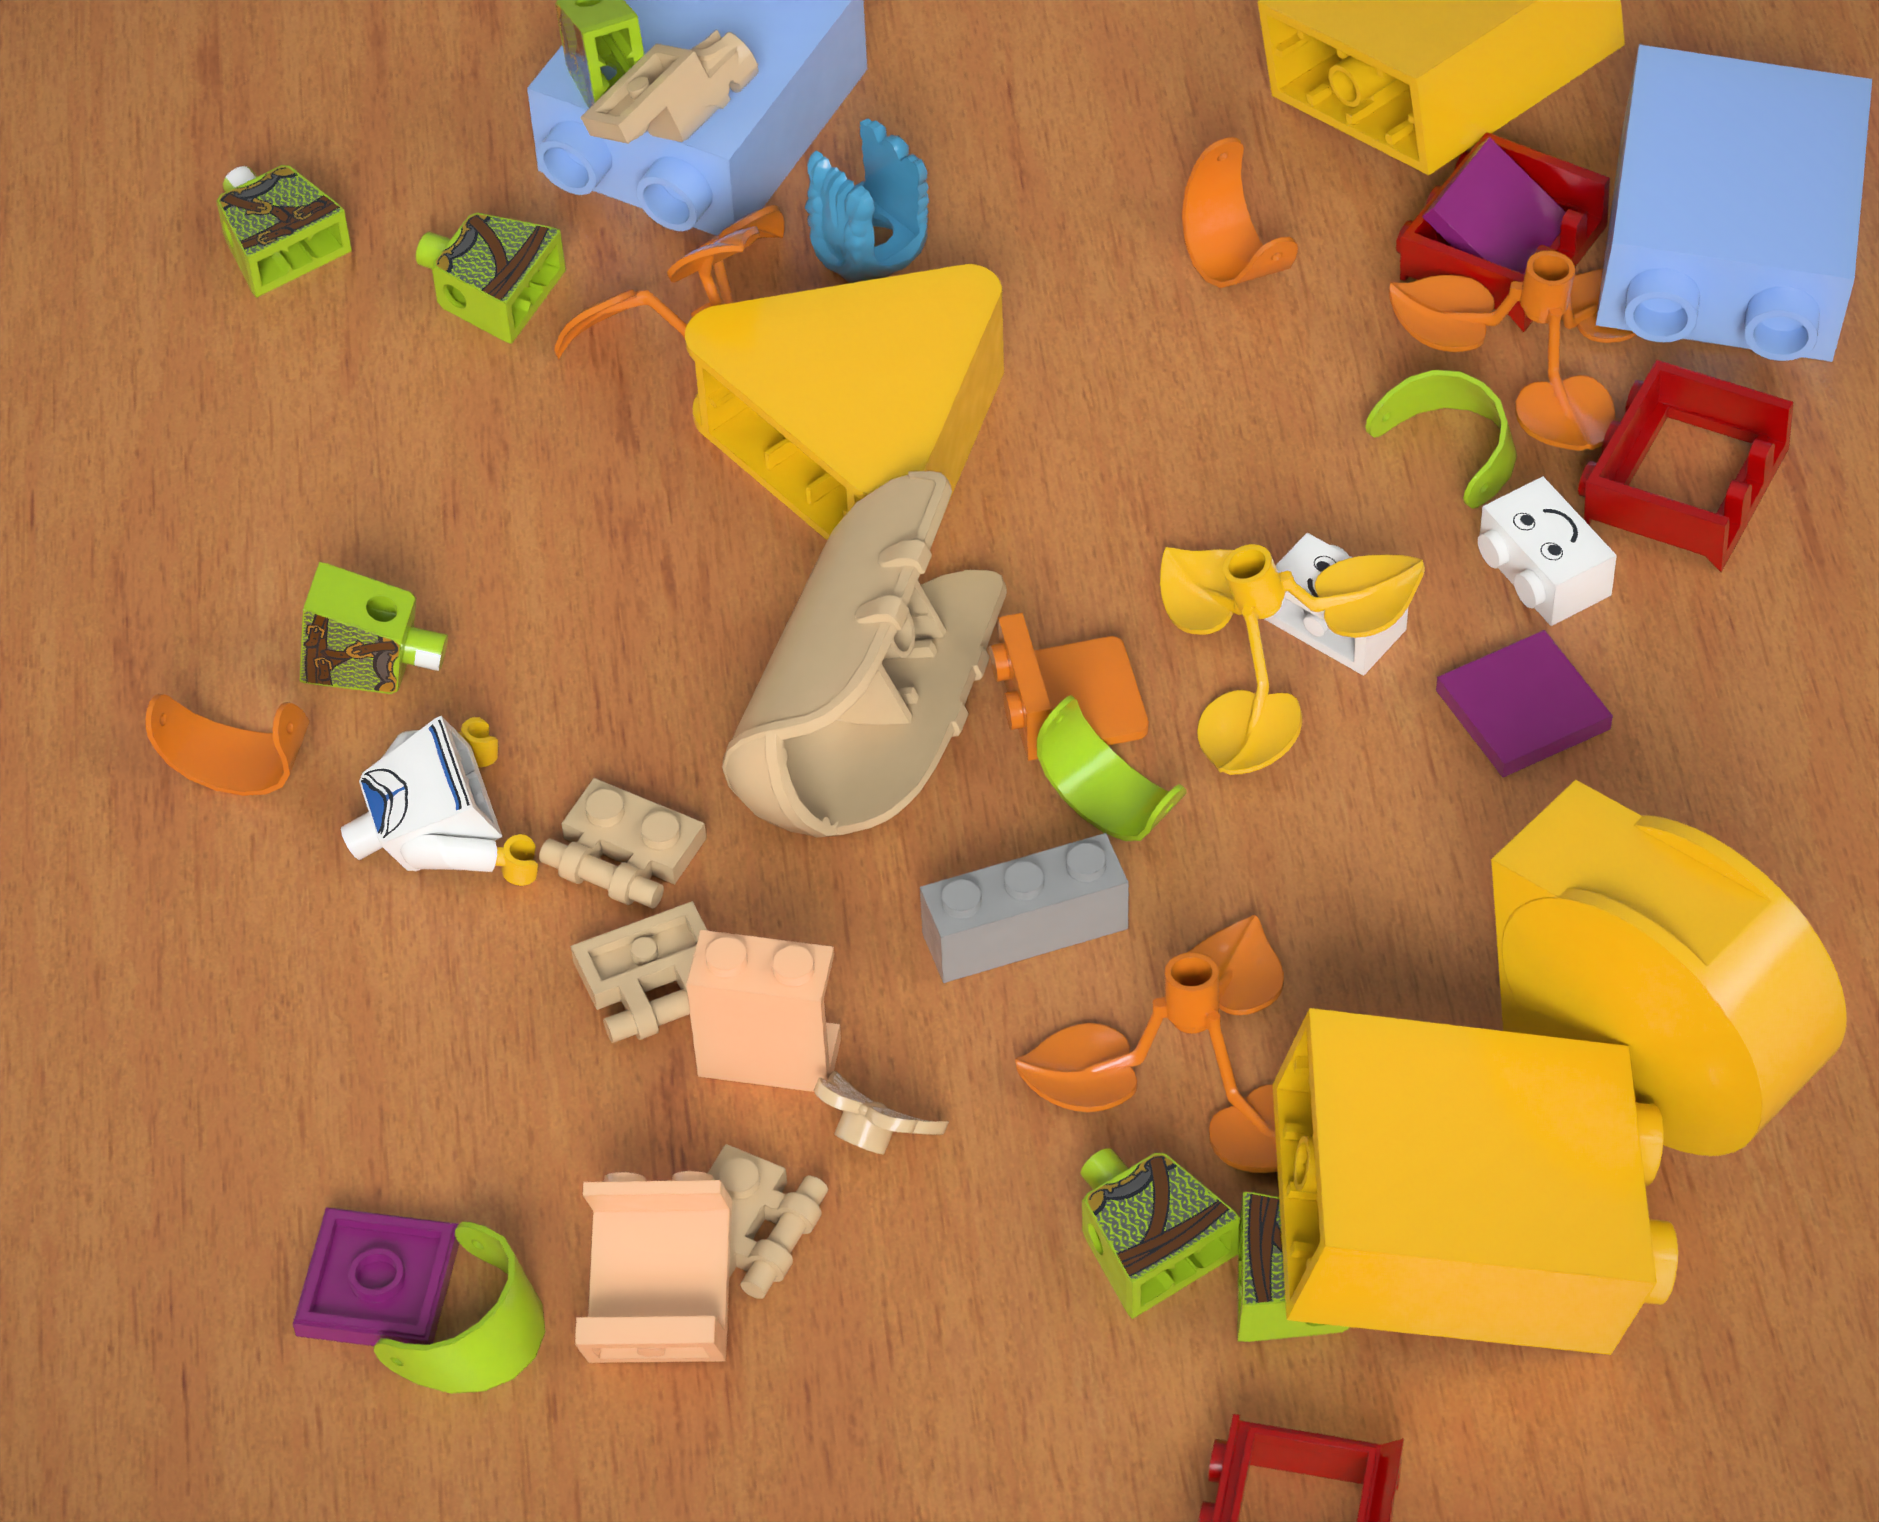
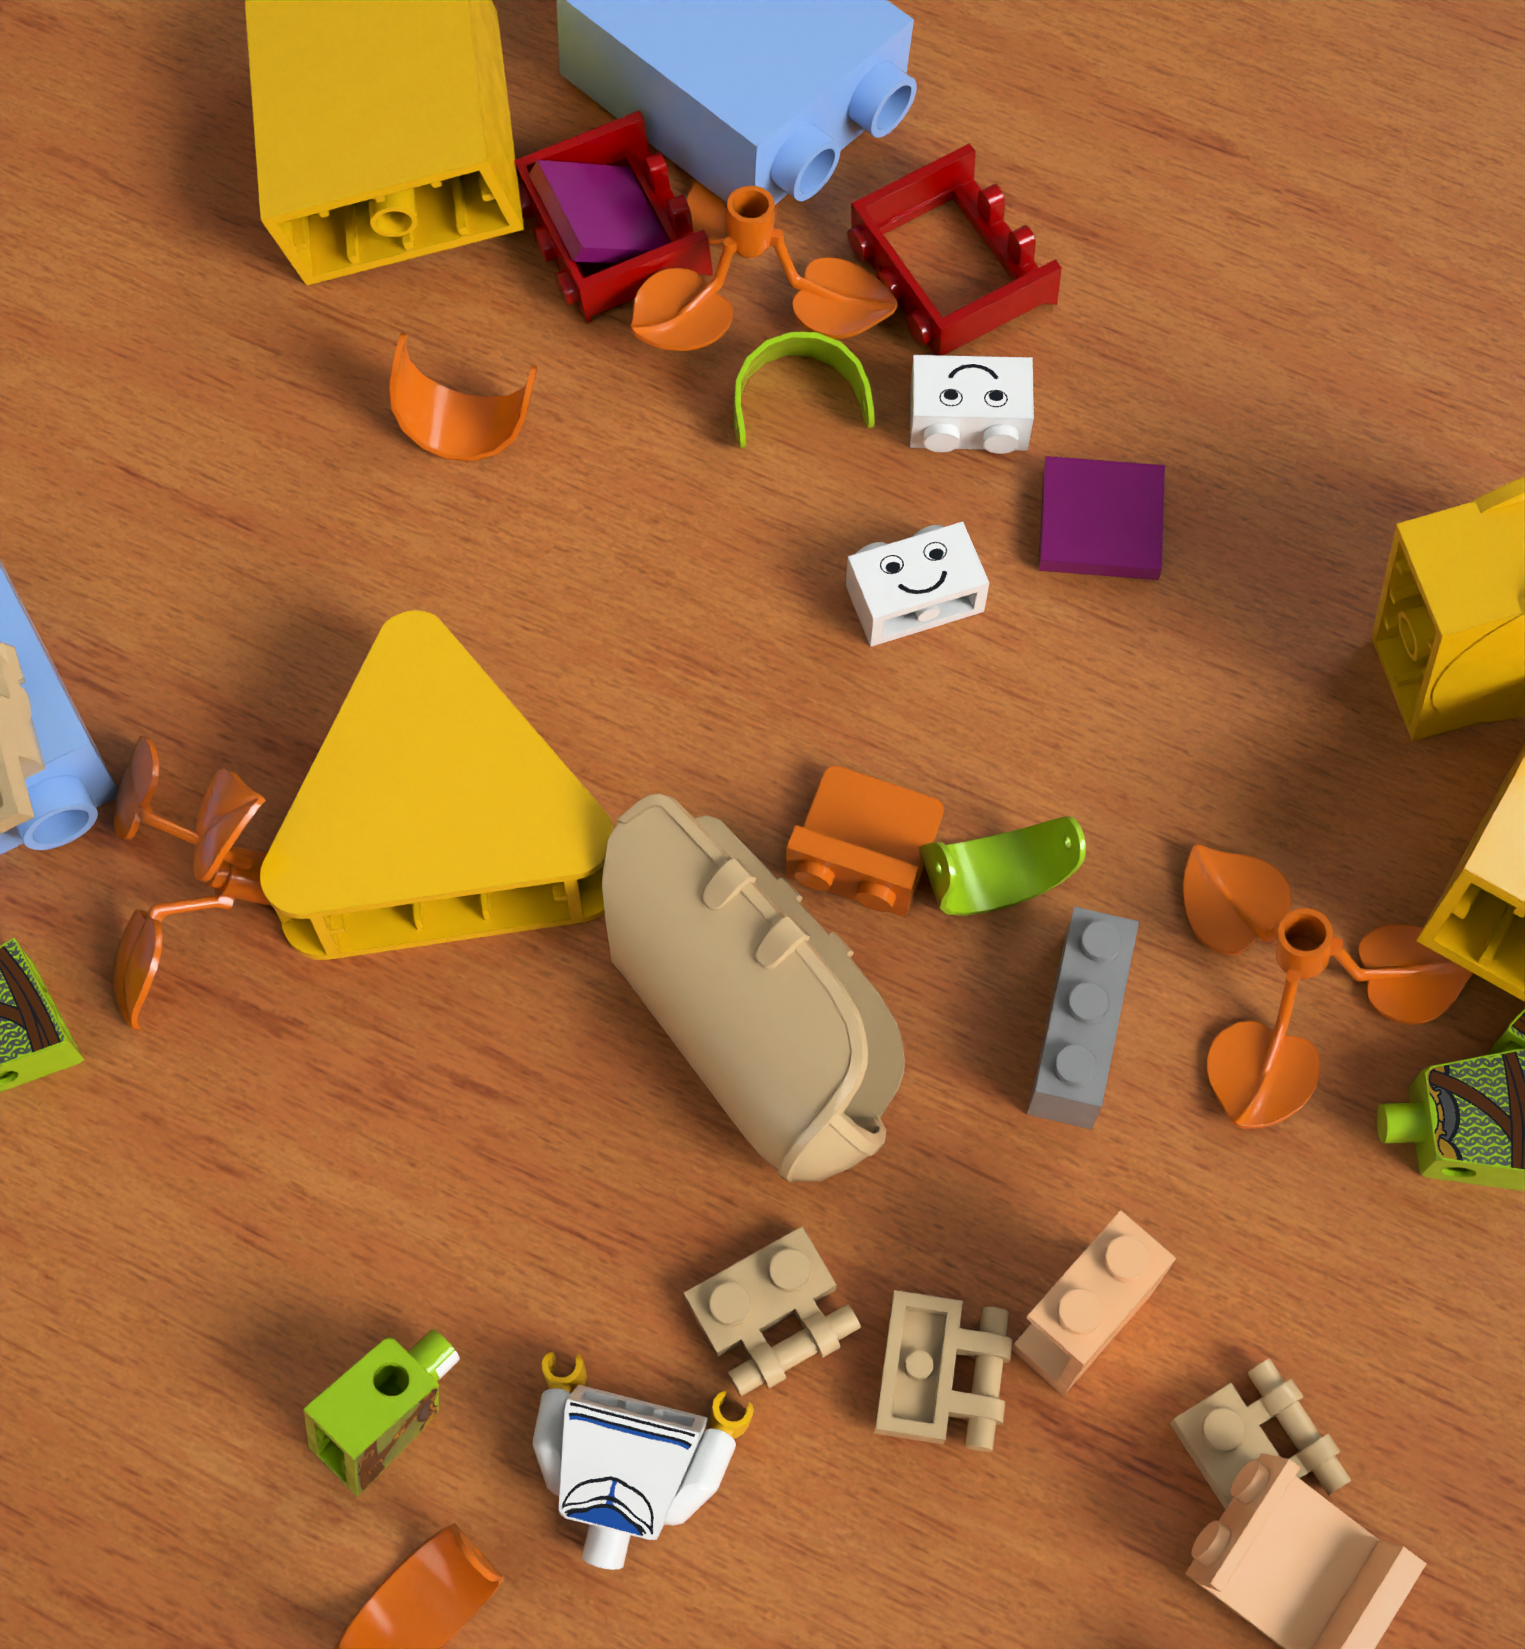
camera: 60 degrees left, 15 degrees up
(869, 1122) = (1231, 1281): tan animal -> none
(889, 197) = (217, 663): dark azure piece -> none
(1206, 587) = (956, 555): yellow plant -> none

